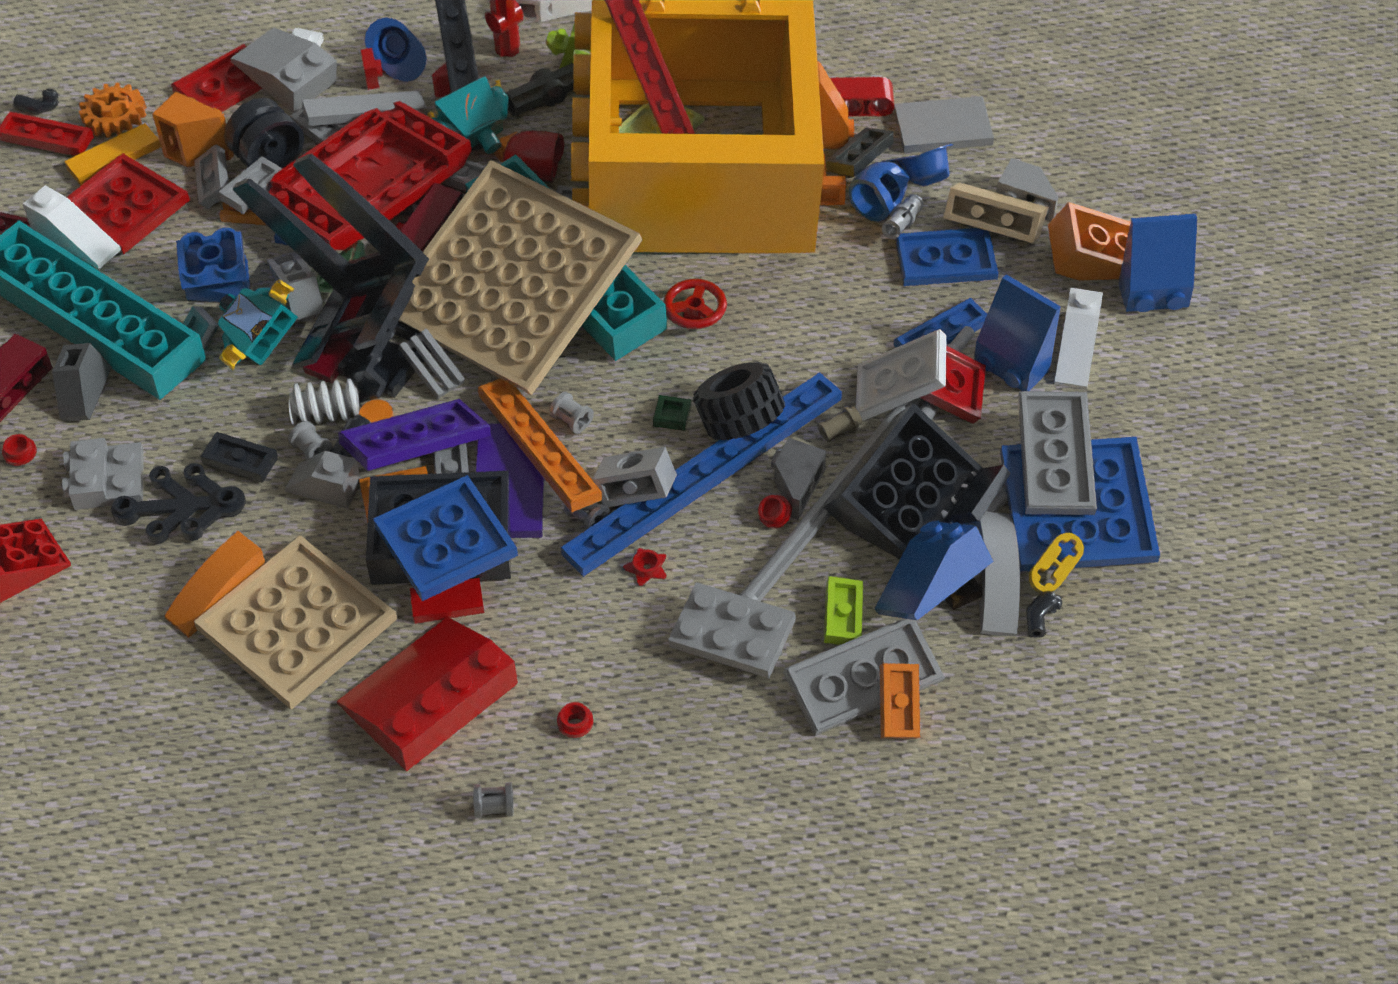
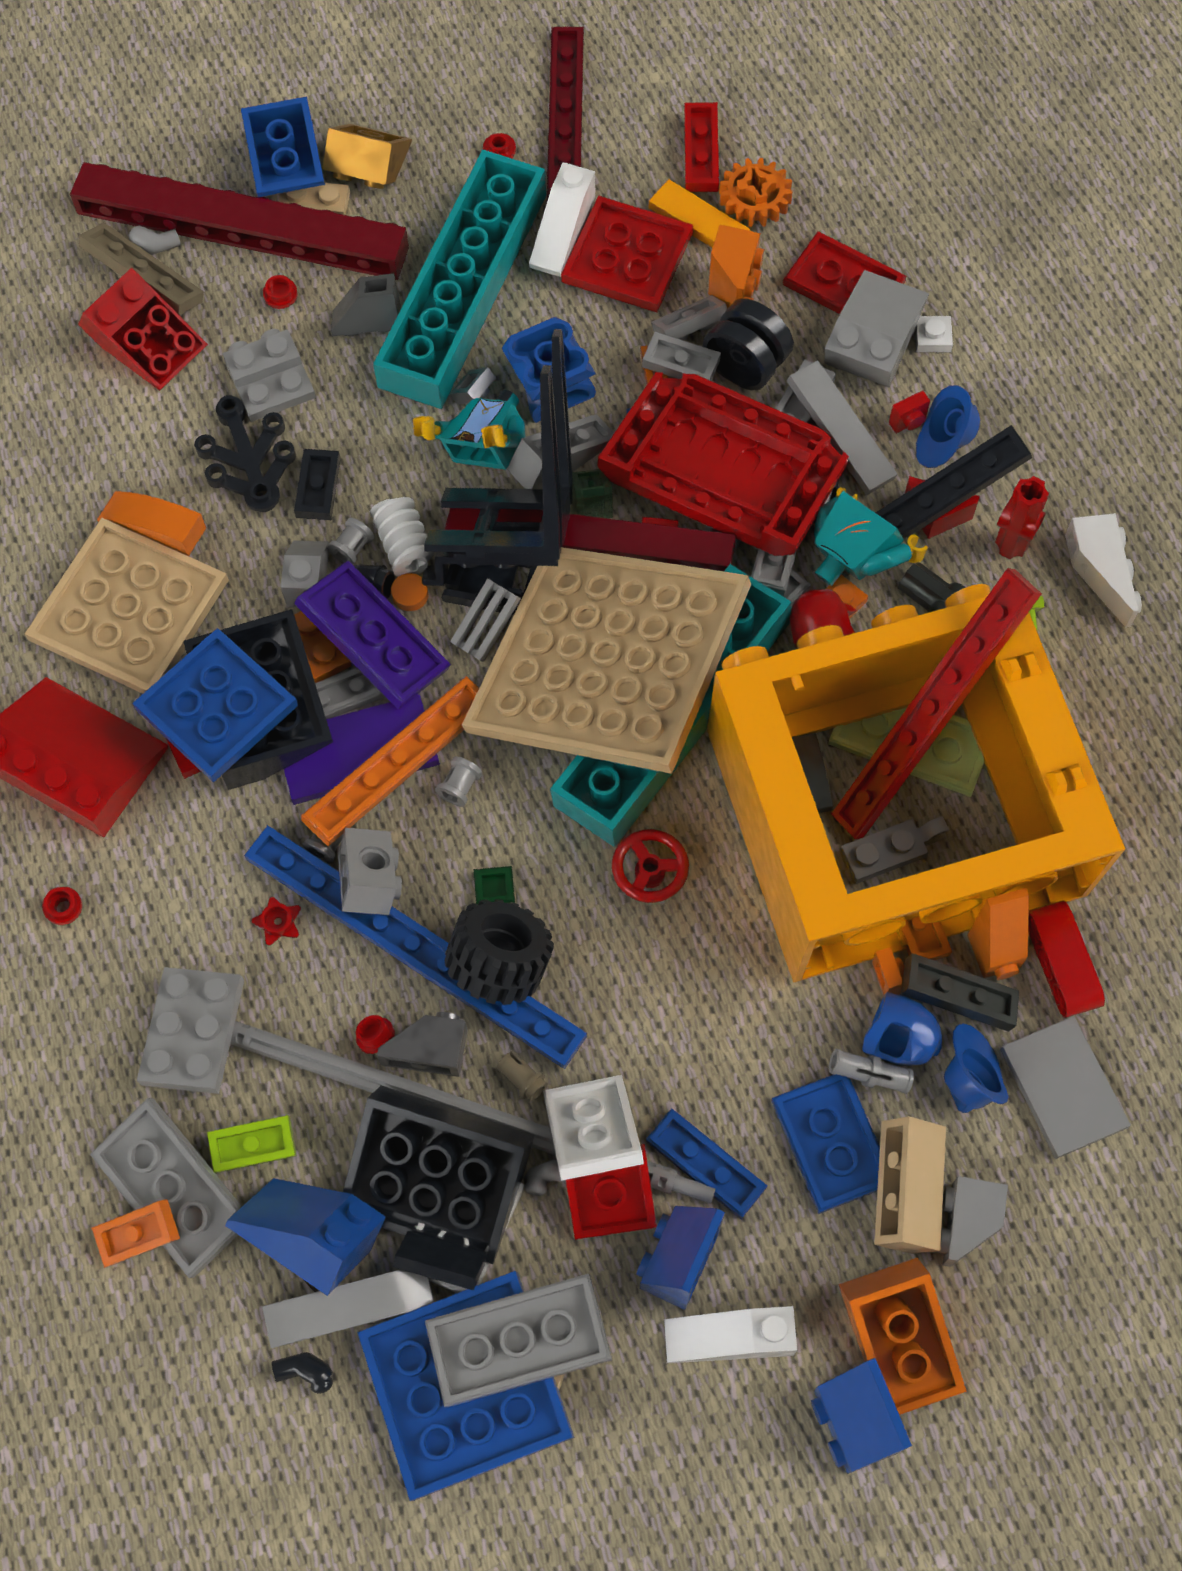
camera: 75 degrees right, 15 degrees up
(37, 106) = (744, 125): black arm -> none
(1049, 558) = (365, 1364): yellow beam -> none

